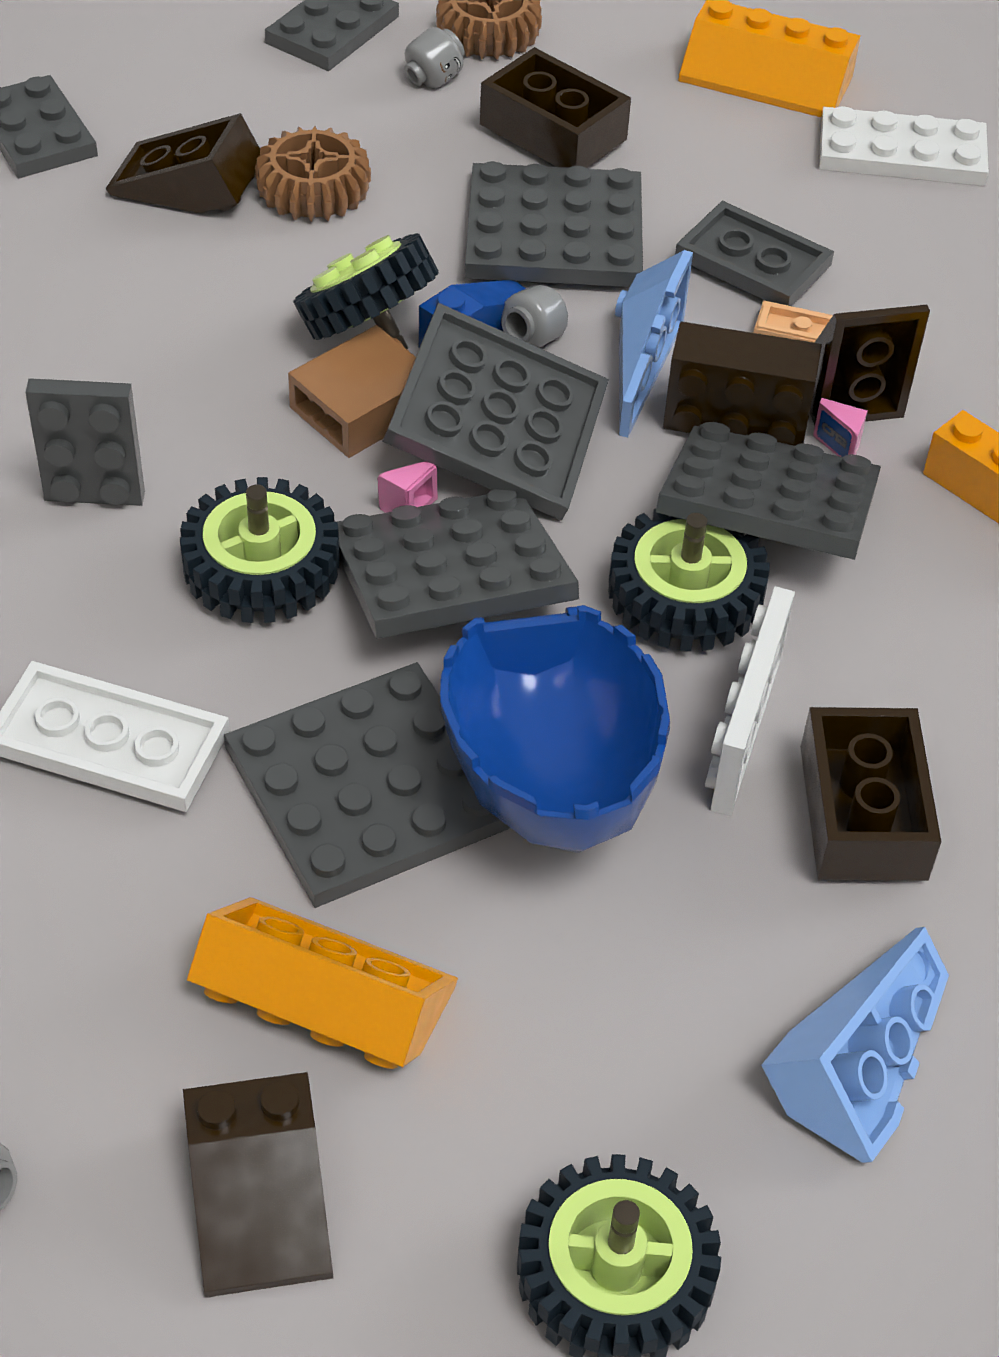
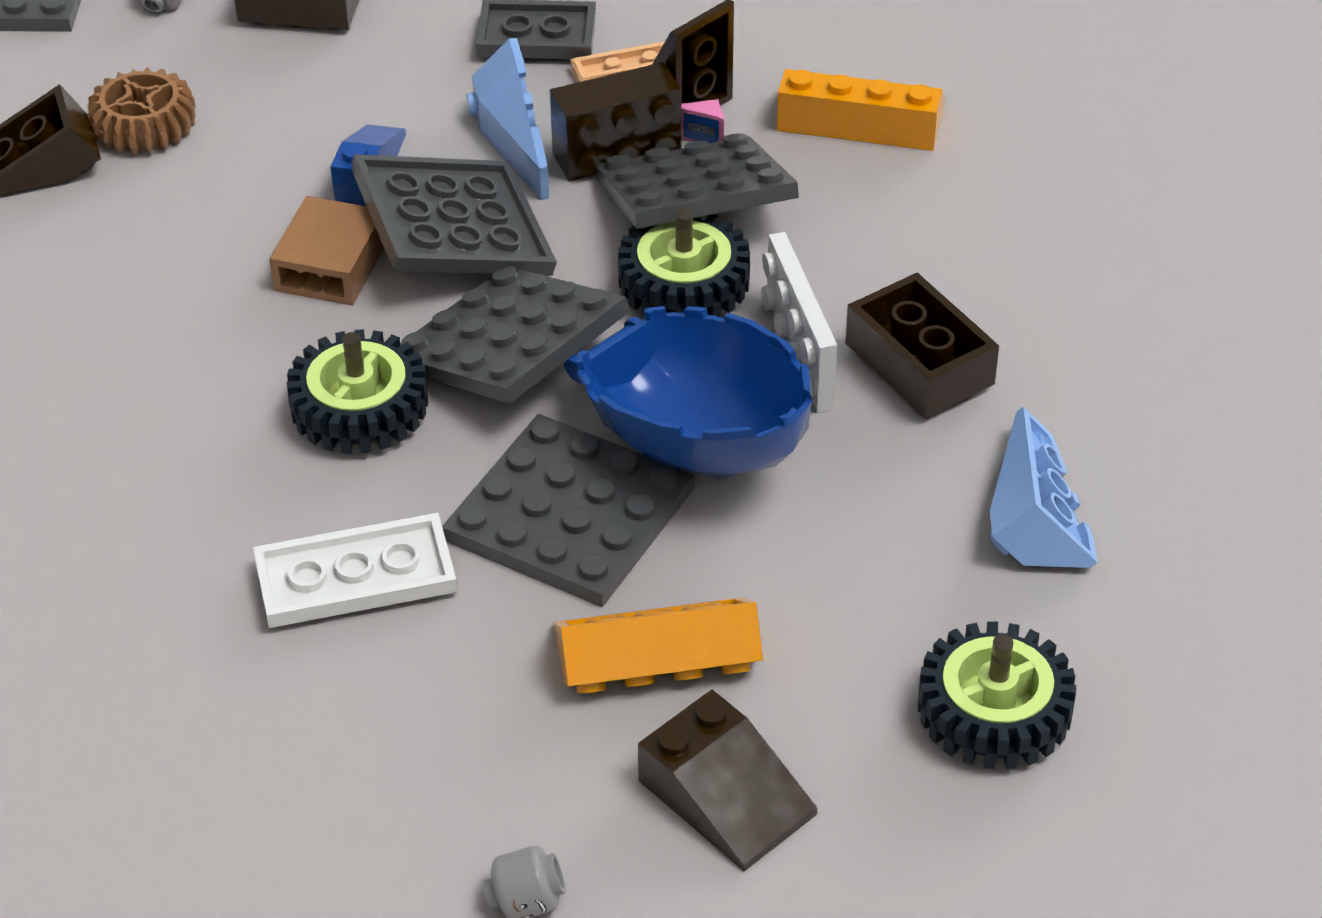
camera: 30 degrees left, 5 degrees down
(86, 441) = (169, 371): dark grey plate -> none
(366, 287) = (279, 169): black wheel -> none
(408, 486) = (425, 301): bright pink slope -> none
(535, 315) = (415, 136): light grey head -> none
(554, 224) = (365, 70): dark grey plate -> none

